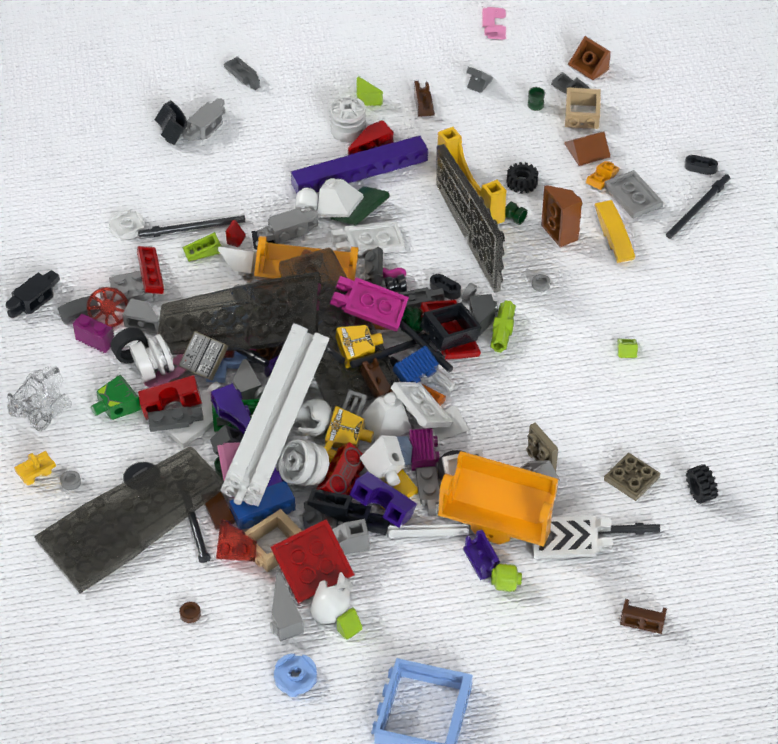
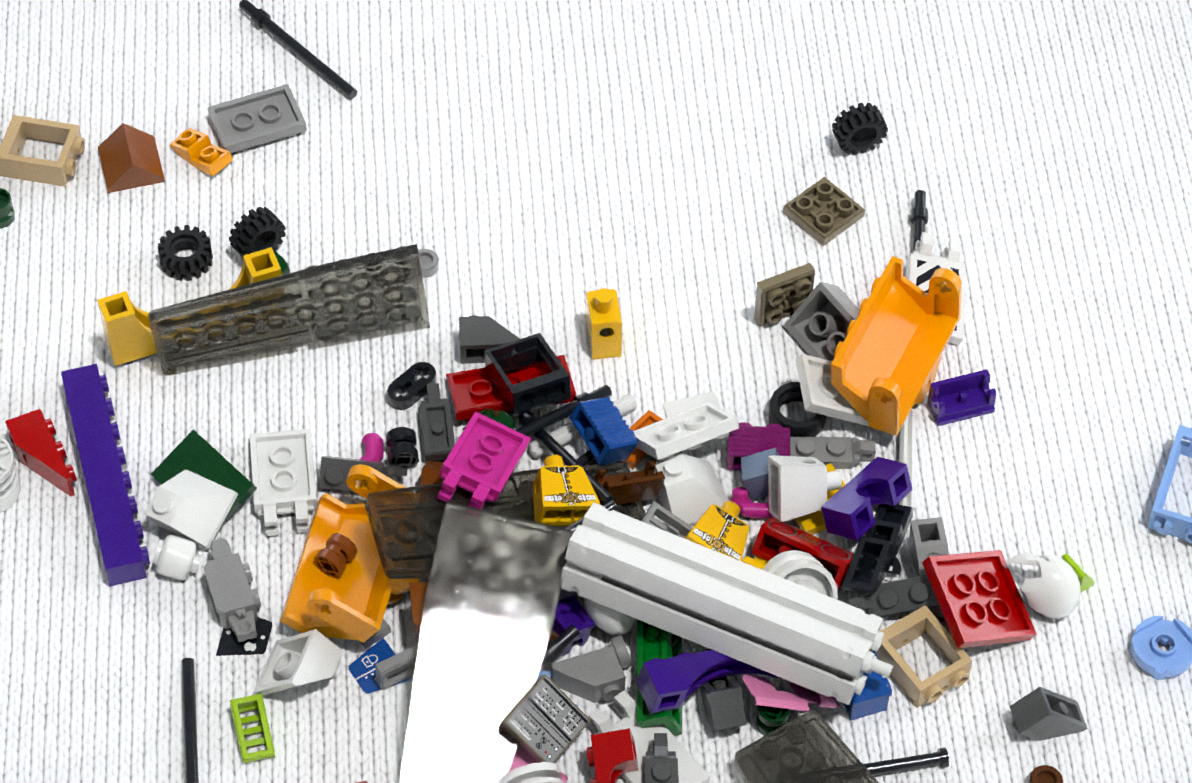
camera: 85 degrees left, 5 degrees up
(219, 509) = (858, 730): reddish brown tile -> none
(235, 234) = (230, 677): red slope -> none
(235, 544) = (936, 702): clear red wing -> none
(235, 609) = (1047, 715): none -> dark grey slope
(285, 615) = (1053, 651): light grey slope -> none
(469, 291) = (436, 352): light grey tile -> none
(503, 326) = (519, 317): lime piece -> none
(504, 363) = (603, 312): none -> yellow torso
(506, 577) = (1006, 372): lime head -> none
(533, 200) = (257, 232): none -> black tyre
(561, 214) = (314, 200): dark orange slope -> none
(614, 231) = (332, 151): yellow slope -> none
(627, 348) = (576, 178): lime slope -> none
(643, 618) = (1069, 233): reddish brown hinge -> none
(701, 164) = (201, 27): black beam -> none

